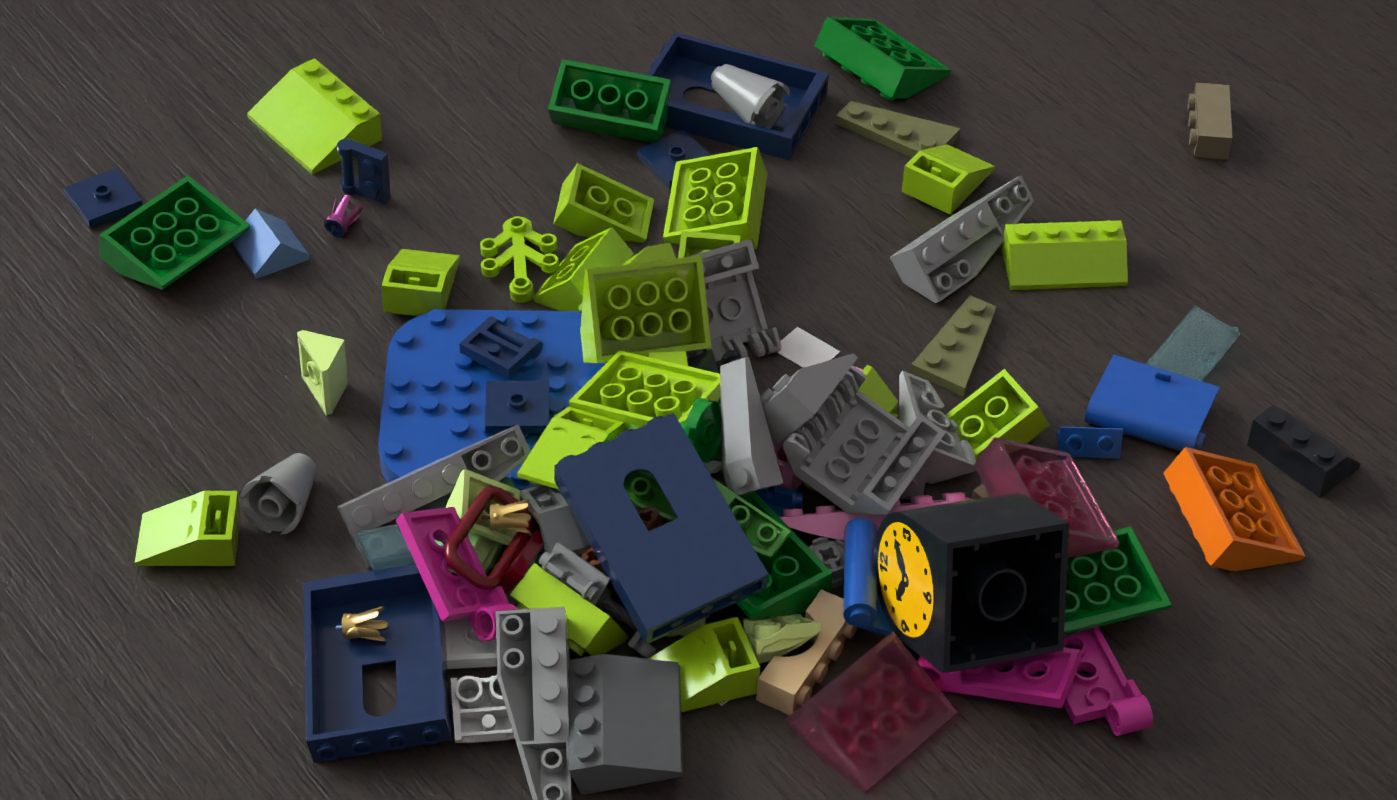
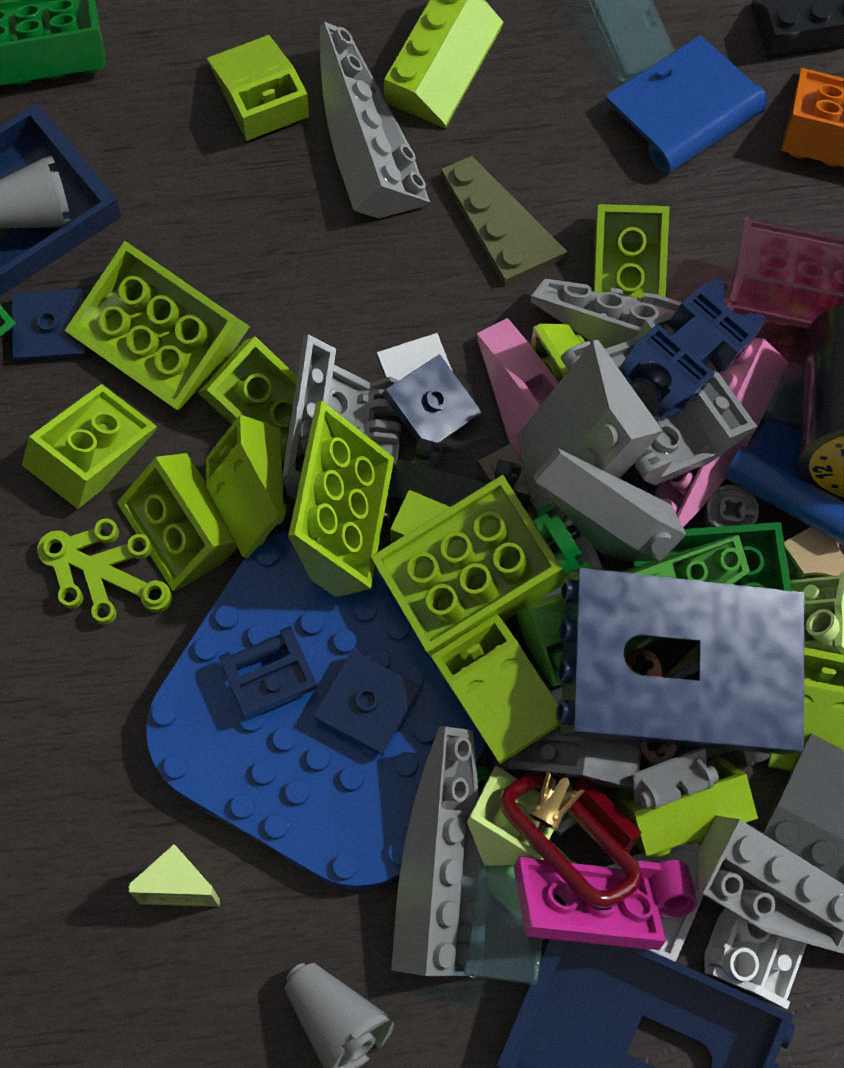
camera: 60 degrees left, 25 degrees up
(362, 626) = (583, 1034): pearl gold piece -> none
(418, 282) = (80, 697): lime slope -> none
(776, 354) = (432, 401): none -> plate
(894, 129) = (157, 87): olive wing -> none
(913, 438) = (677, 362): none -> dark blue piece
(1090, 442) = (706, 175): blue hinge -> none

